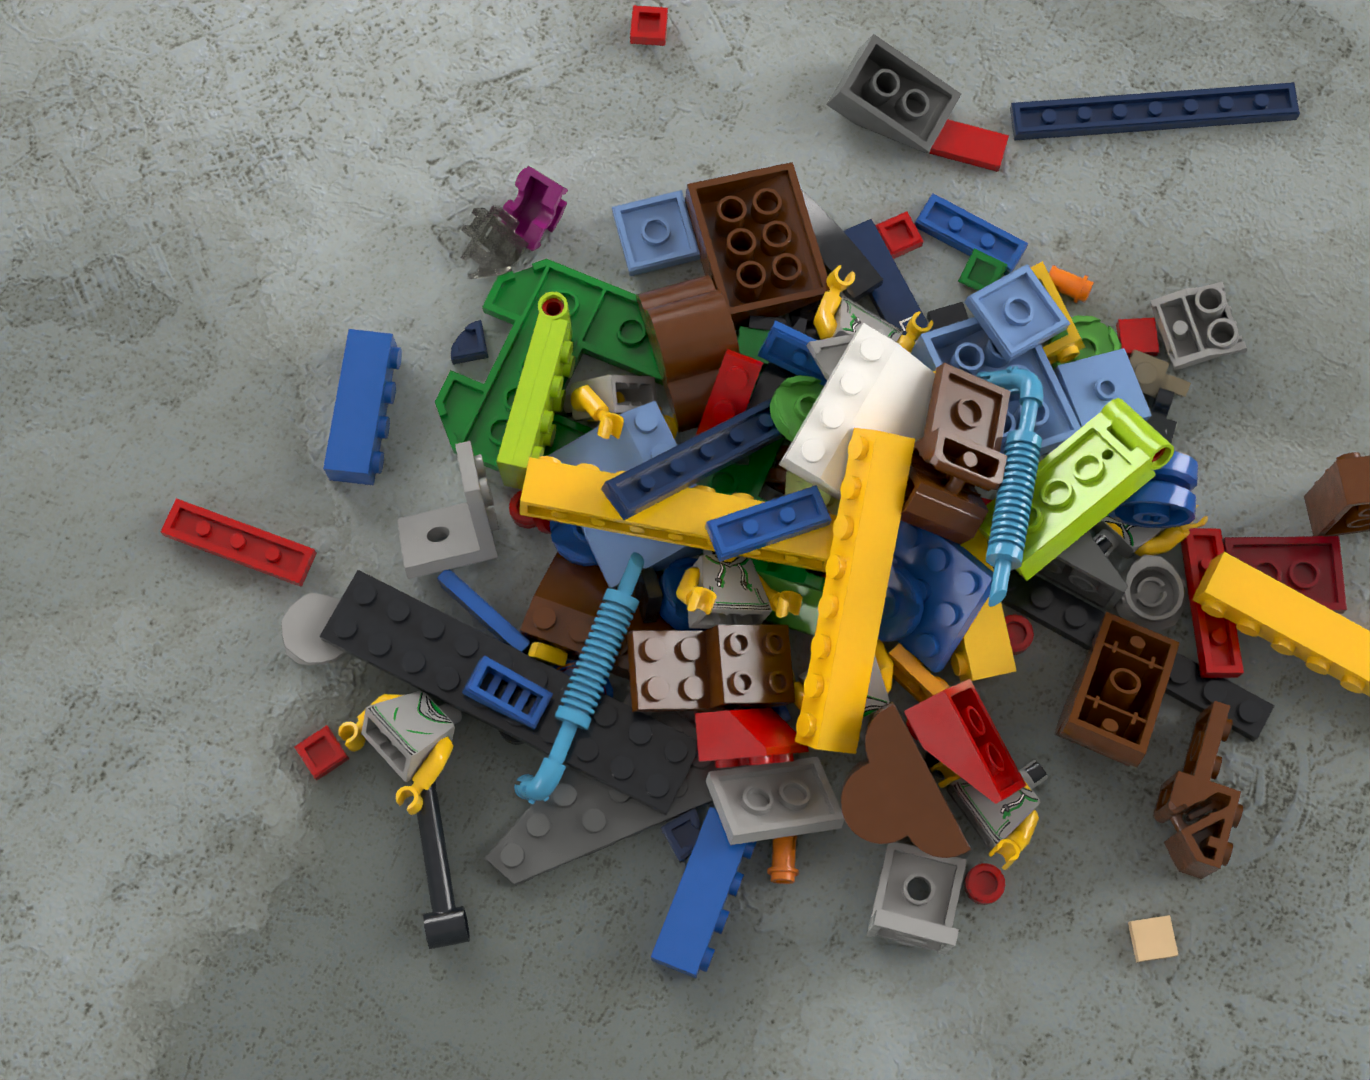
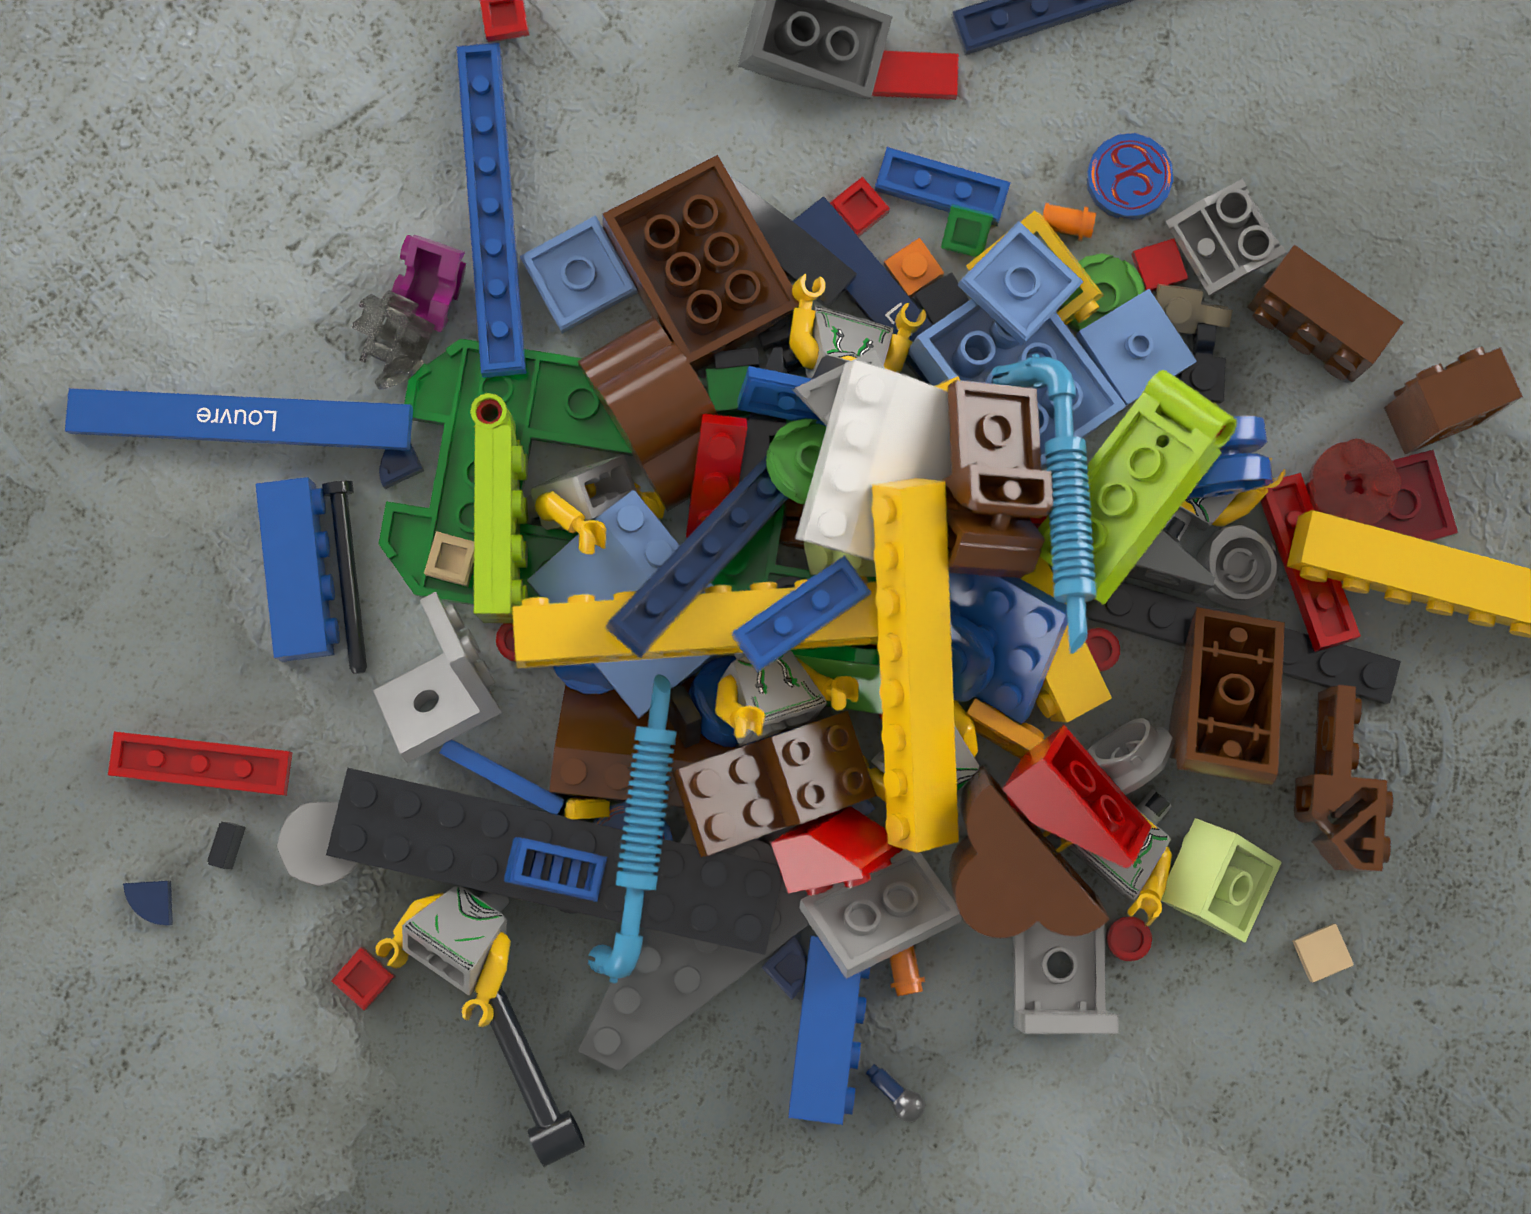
camera: 15 degrees left, 10 degrees up
(165, 644) = (151, 900): none -> dark blue tile
(240, 612) = (226, 845): none -> black tile
(351, 279) = (239, 419): none -> blue tile
(414, 355) = (338, 493): none -> black bar
(488, 426) = (451, 559): none -> tan tile
(597, 169) = (491, 210): none -> blue tile
(756, 976) = (906, 1103): none -> piece
(932, 291) = (913, 268): none -> orange plate
(1025, 722) = (1133, 753): none -> light grey hat
(1076, 851) = (1220, 879): none -> yellowish green slope
(1128, 262) = (1129, 176): none -> blue tile
(1267, 402) = (1324, 315): none -> reddish brown brick
(1276, 528) = (1354, 458): none -> clear red plate

